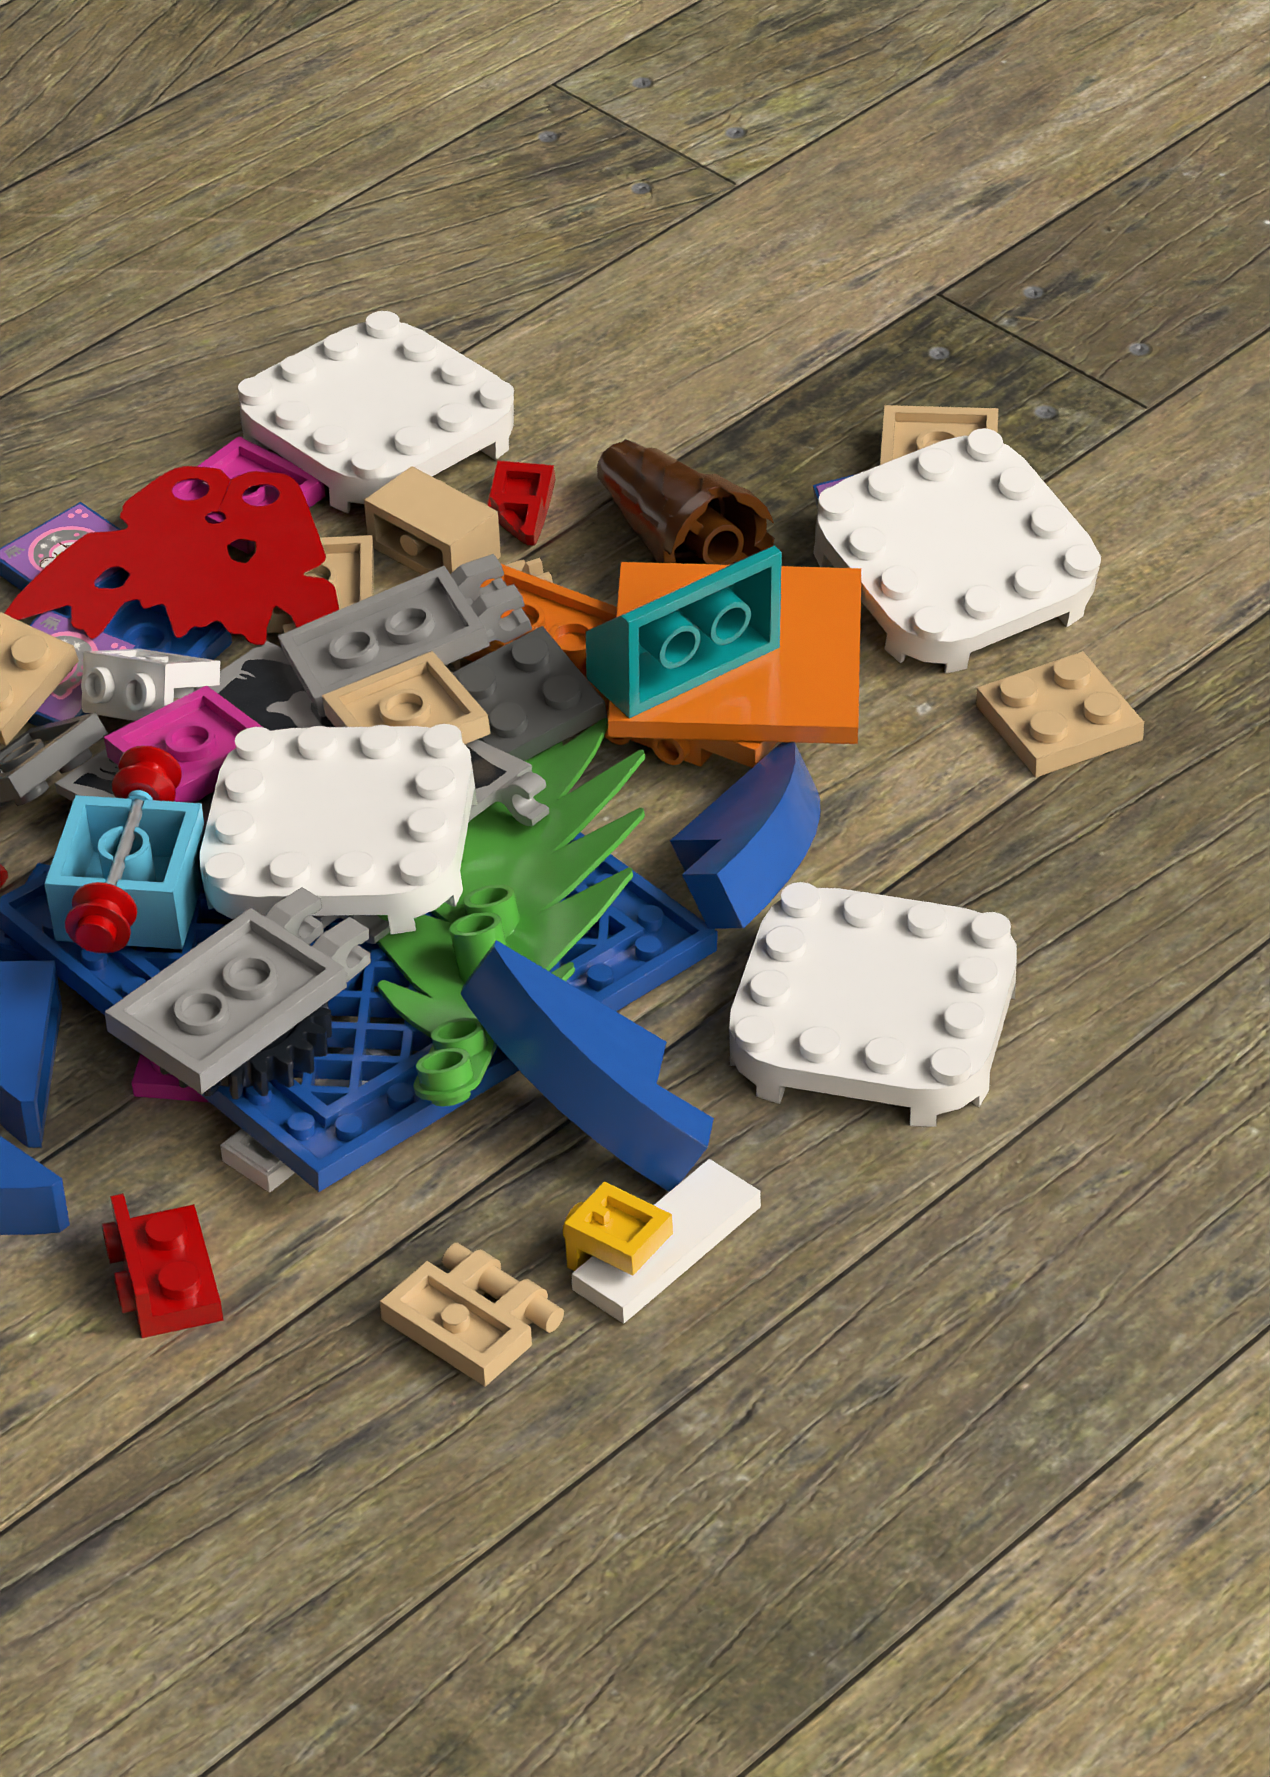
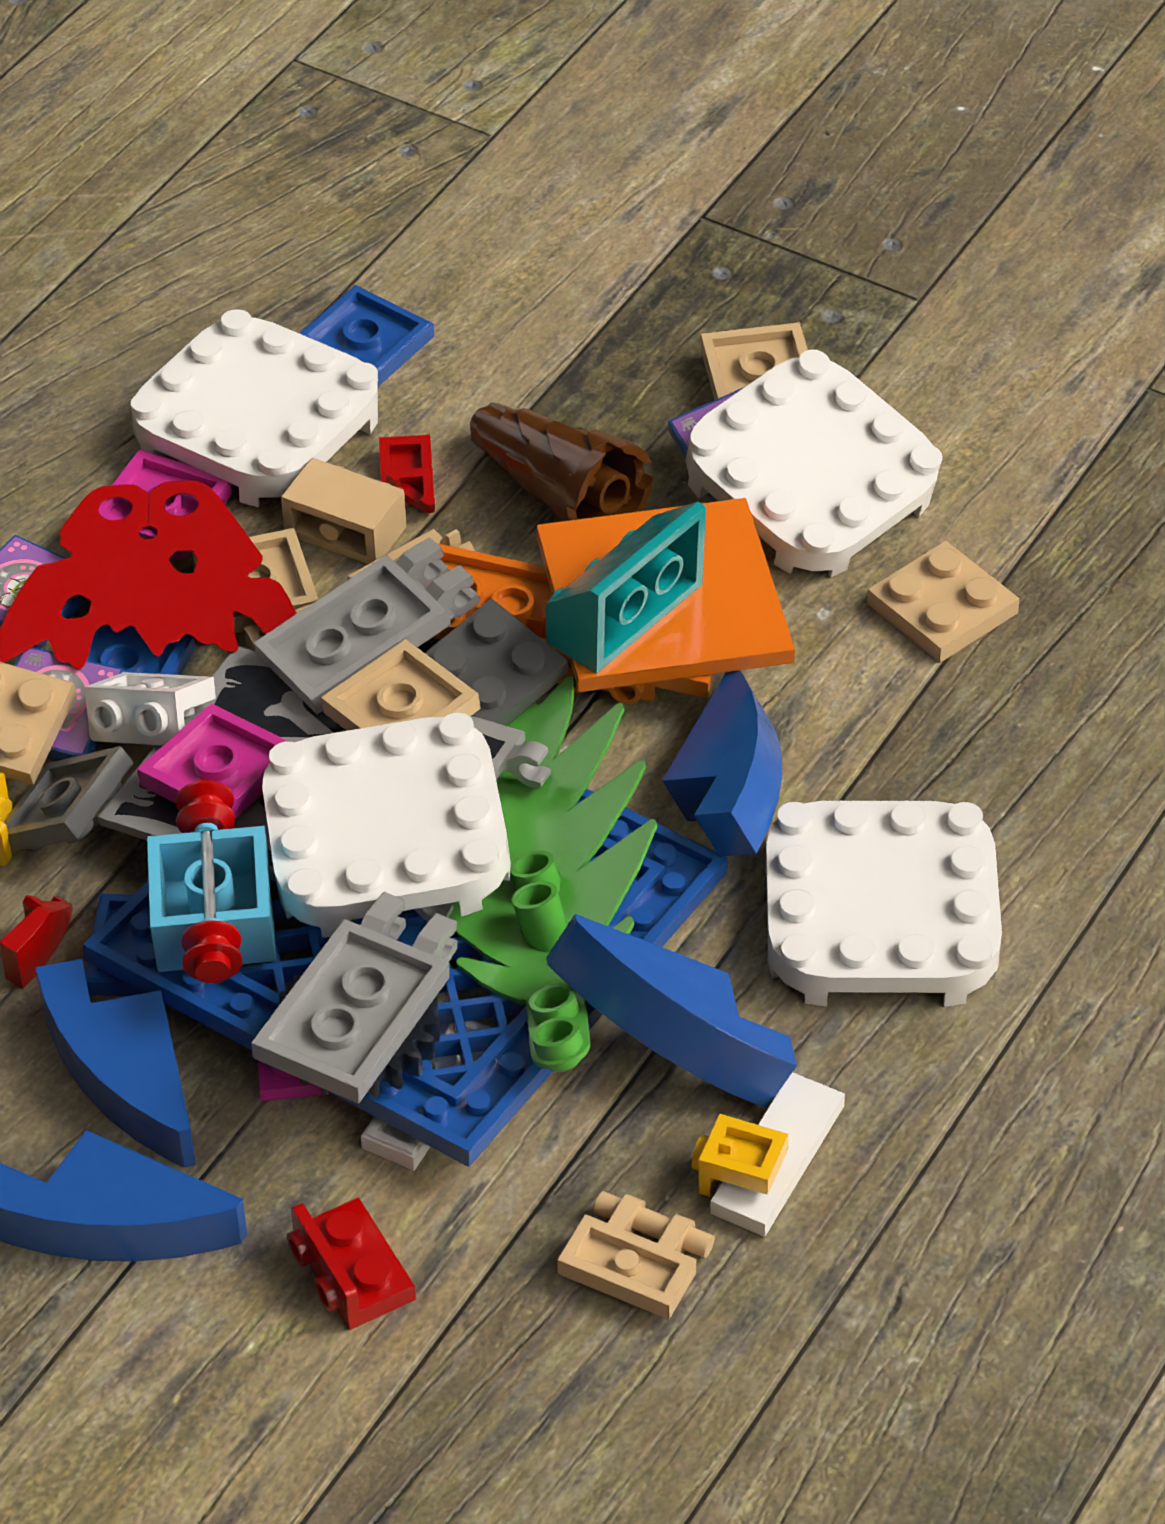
camera: 15 degrees left, 5 degrees up
(533, 359) = (371, 330): none -> blue tile

